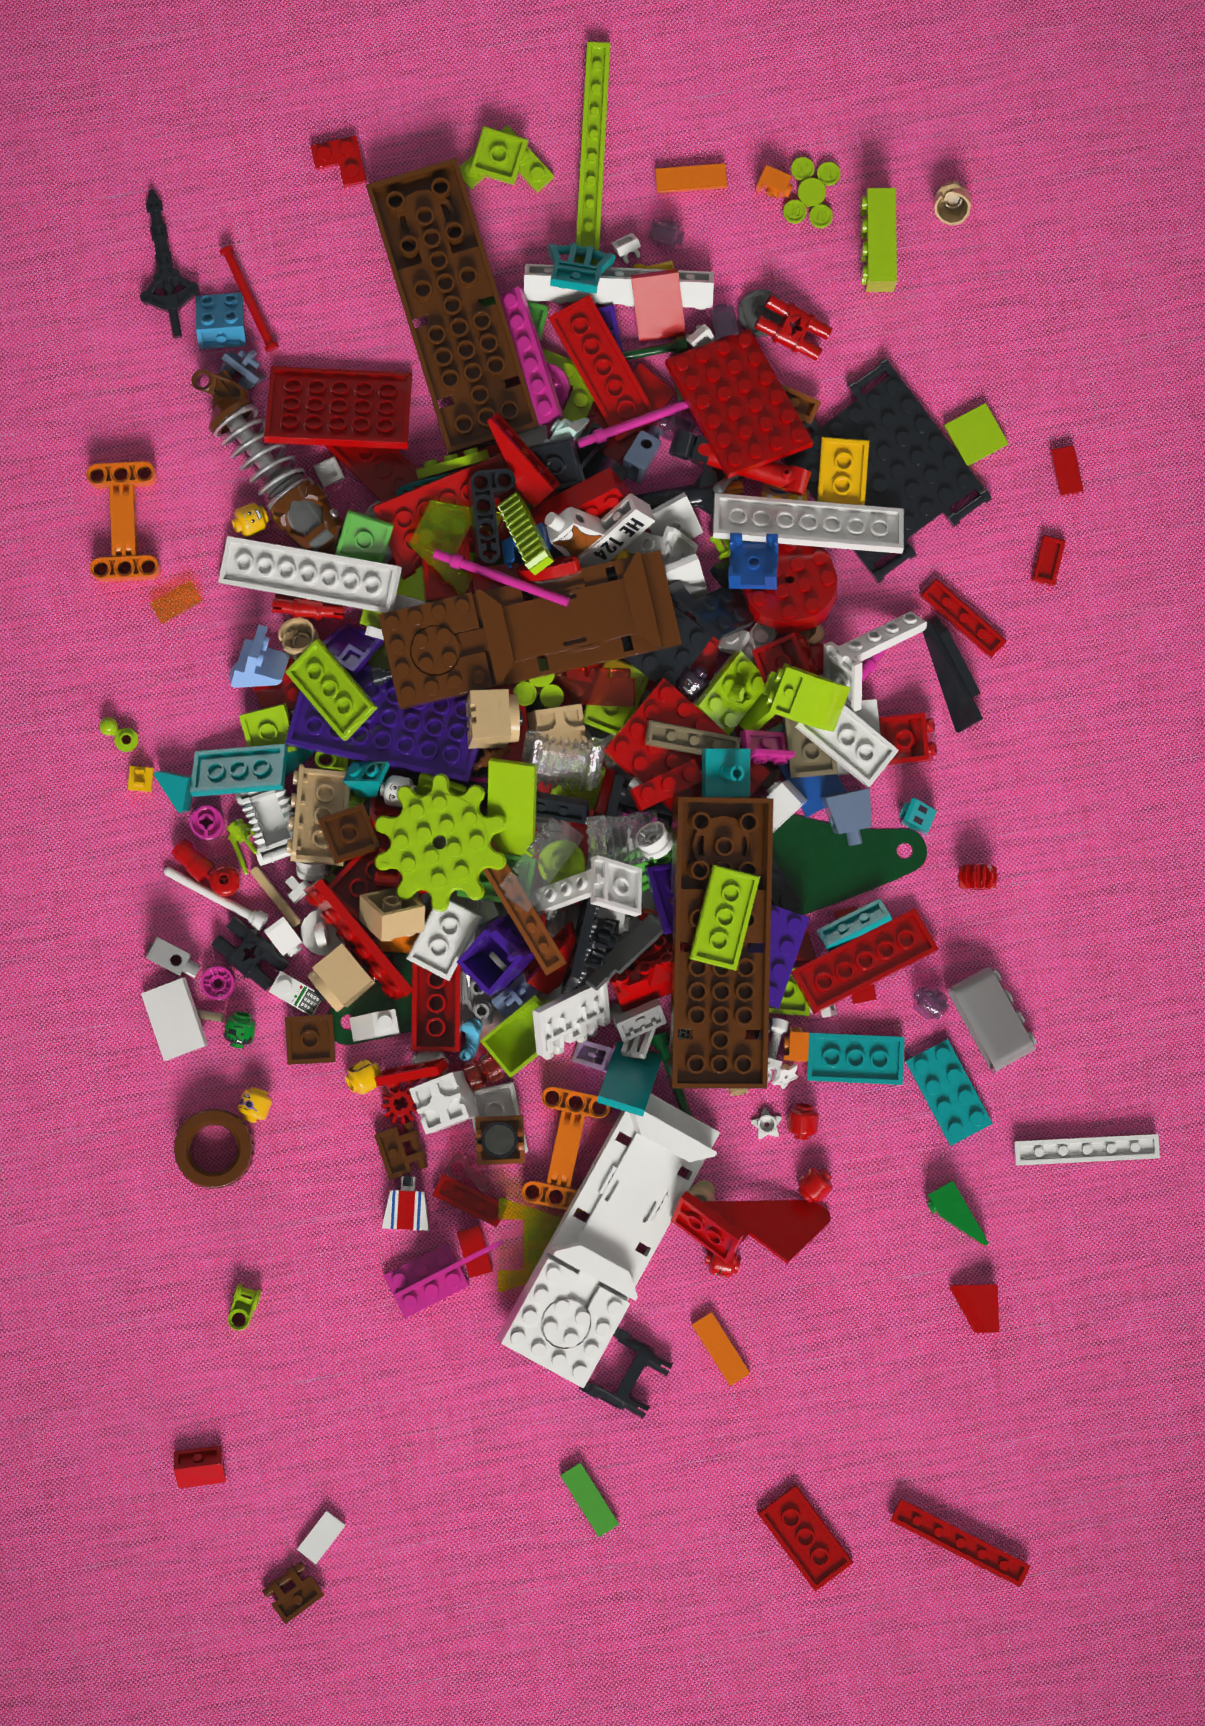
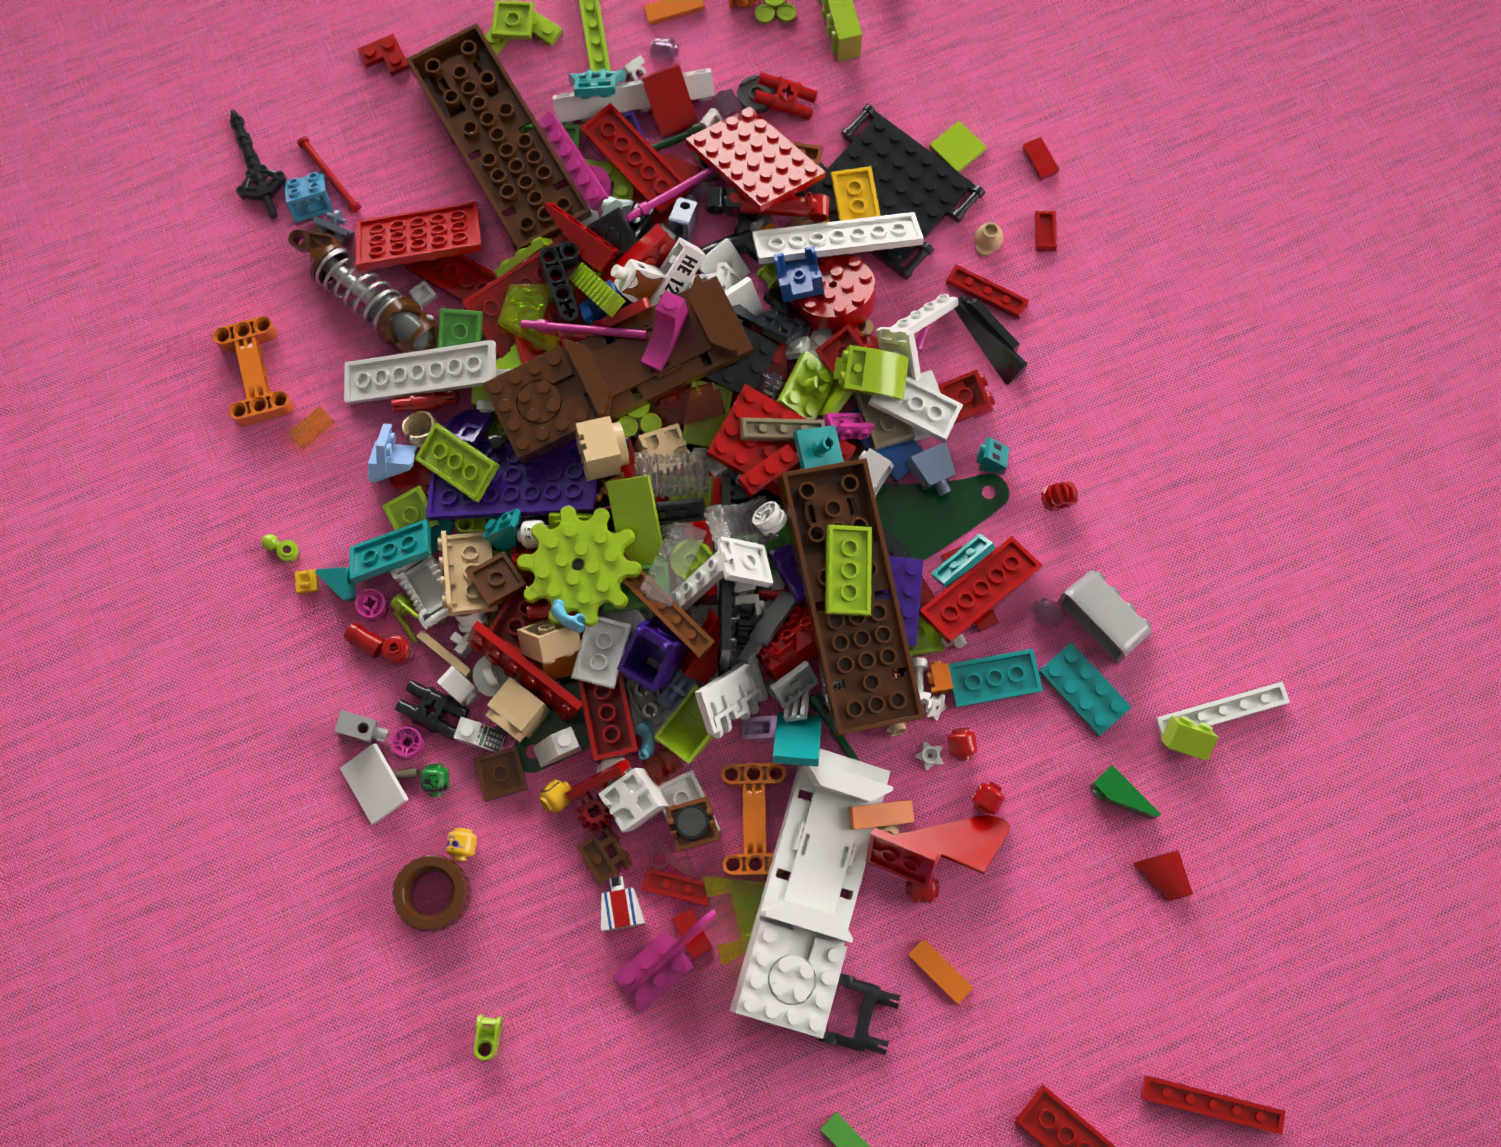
camera: 10 degrees left, 10 degrees down
(250, 519) = (361, 345): yellow head -> none
(255, 918) = (428, 677): white piece -> none
(409, 893) = (572, 622): none -> medium azure piece
(589, 607) = (669, 323): none -> dark pink arch
(699, 1176) = (881, 814): none -> orange tile
(981, 554) = (988, 238): none -> tan piece
(1041, 1171) = (1189, 737): none -> lime brick

